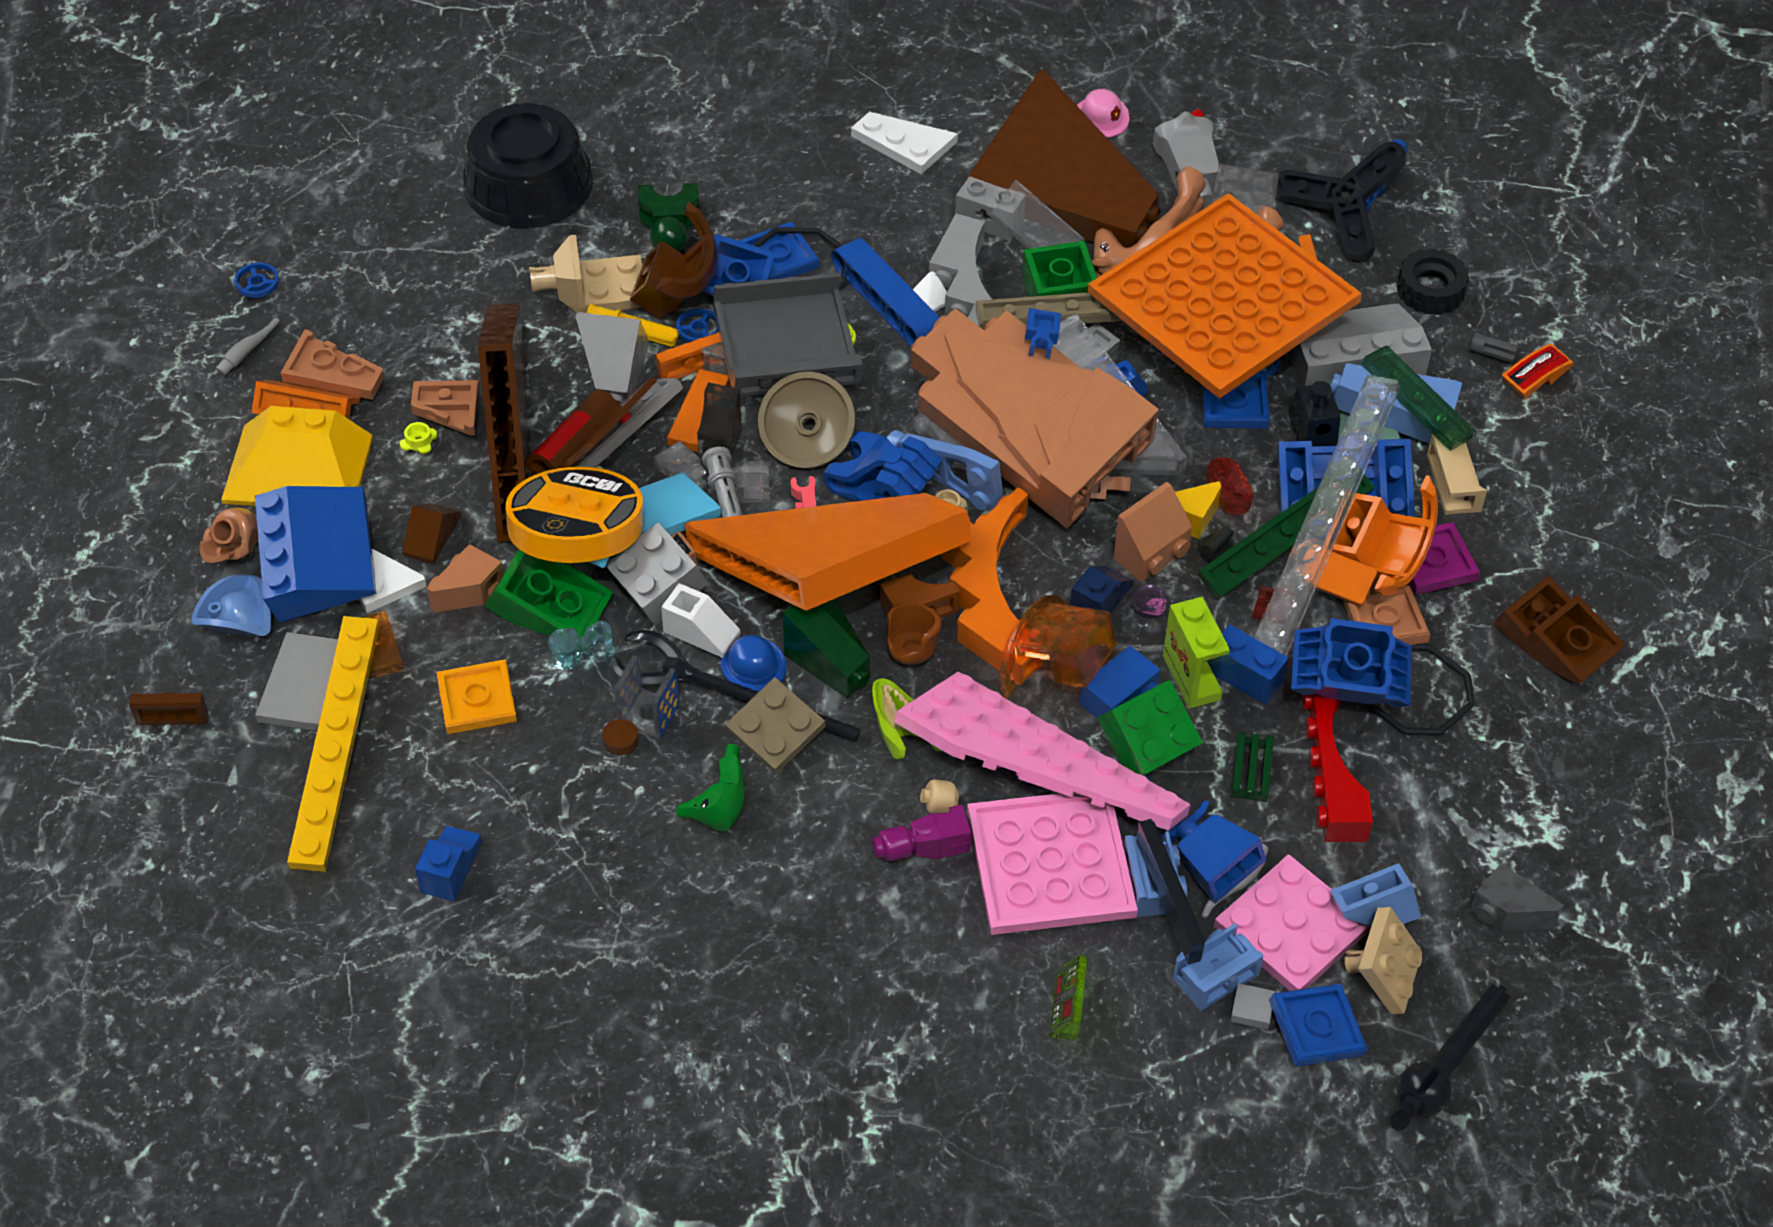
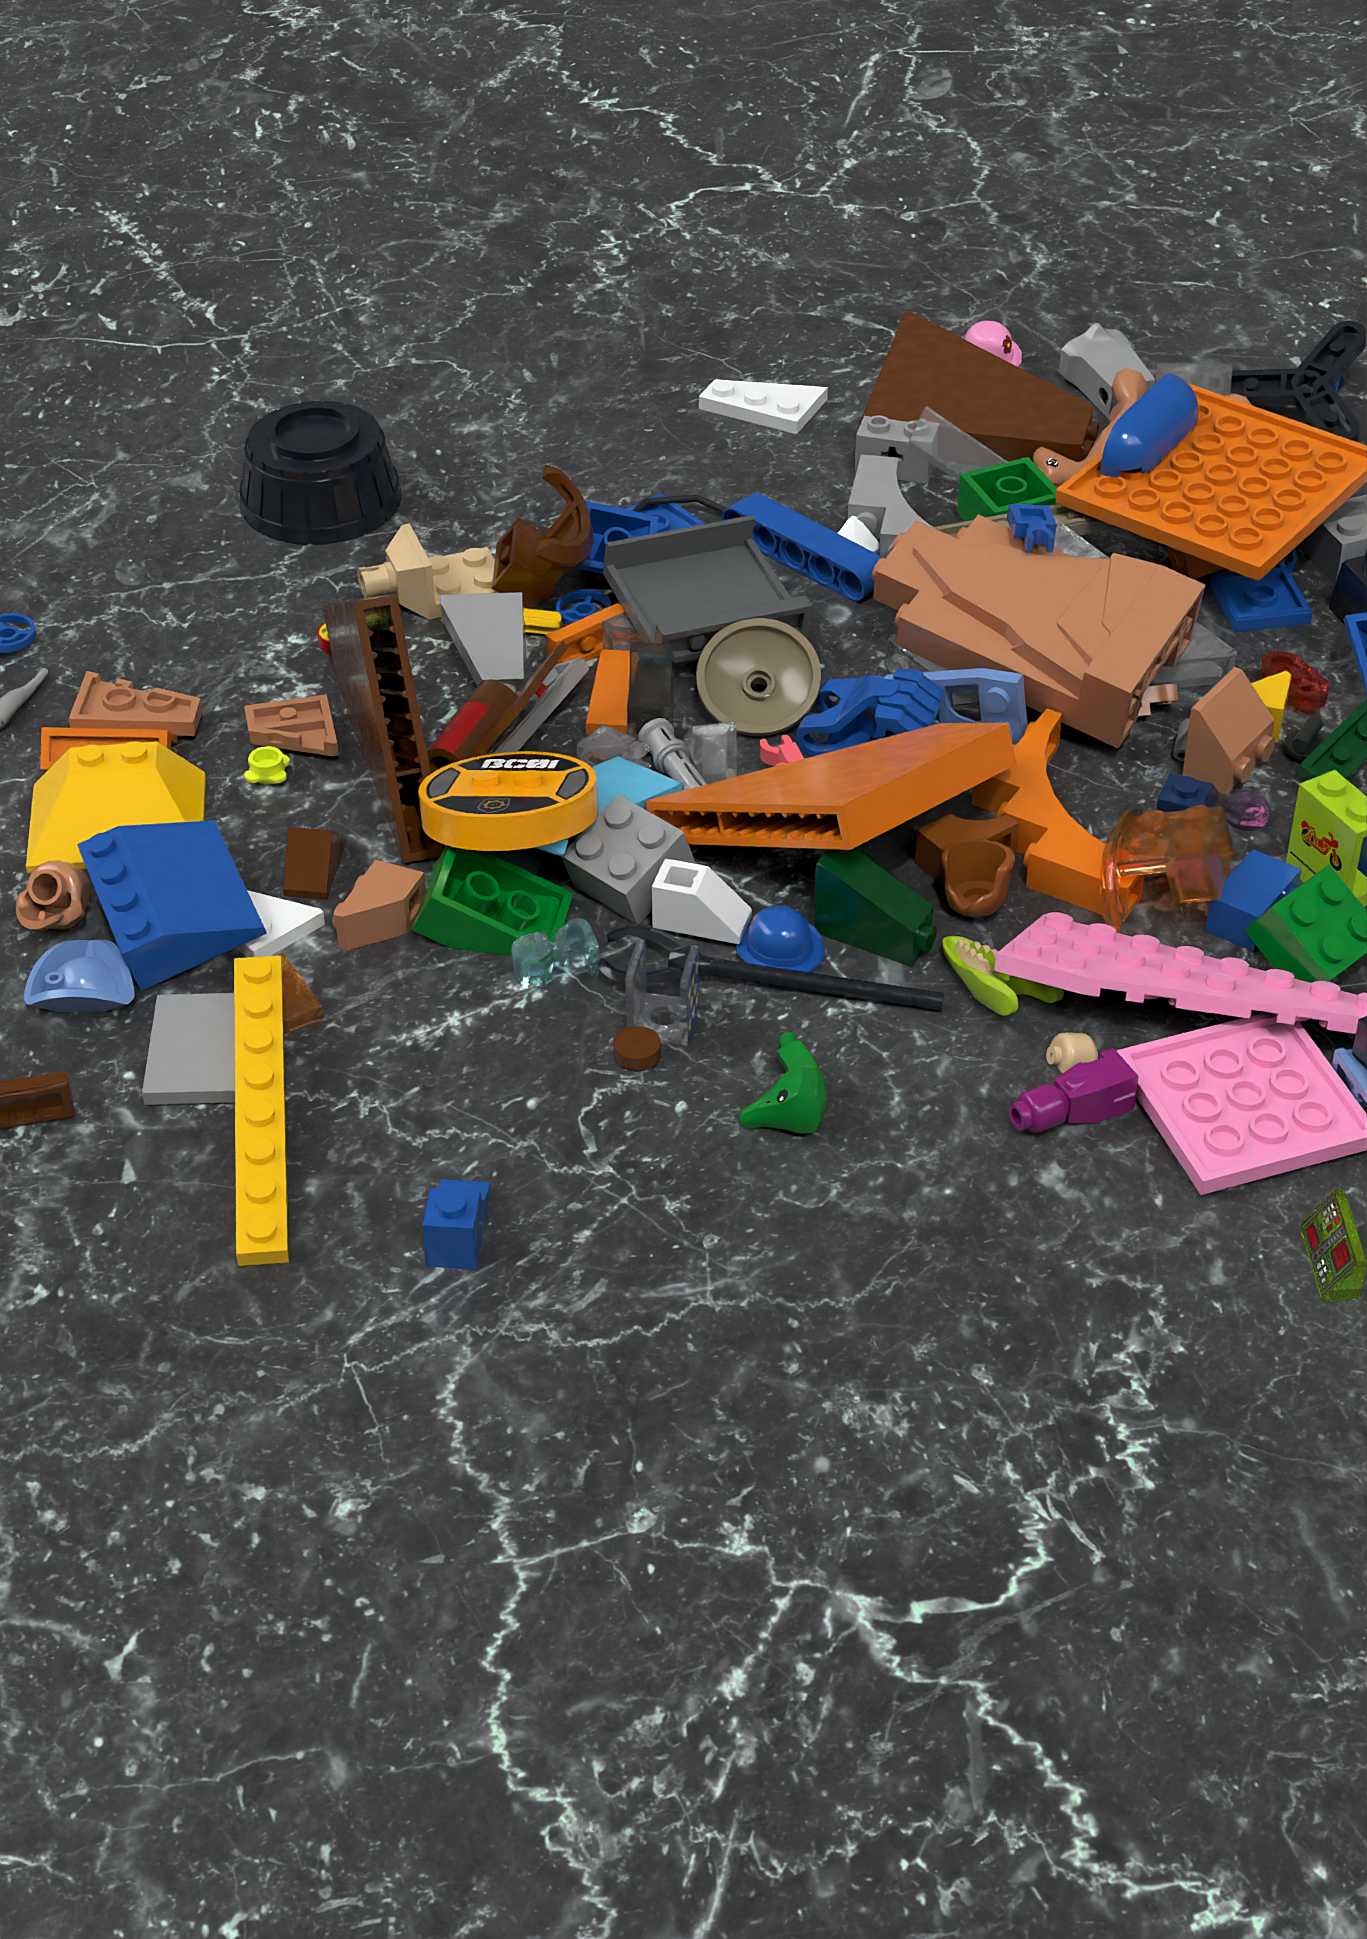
camera: 10 degrees left, 10 degrees down
(476, 696) = (431, 1032): light orange tile -> none
(666, 214) = (506, 500): dark green piece -> none
(775, 725) = (836, 1003): dark tan plate -> none
(1179, 239) = (1151, 427): none -> blue brick

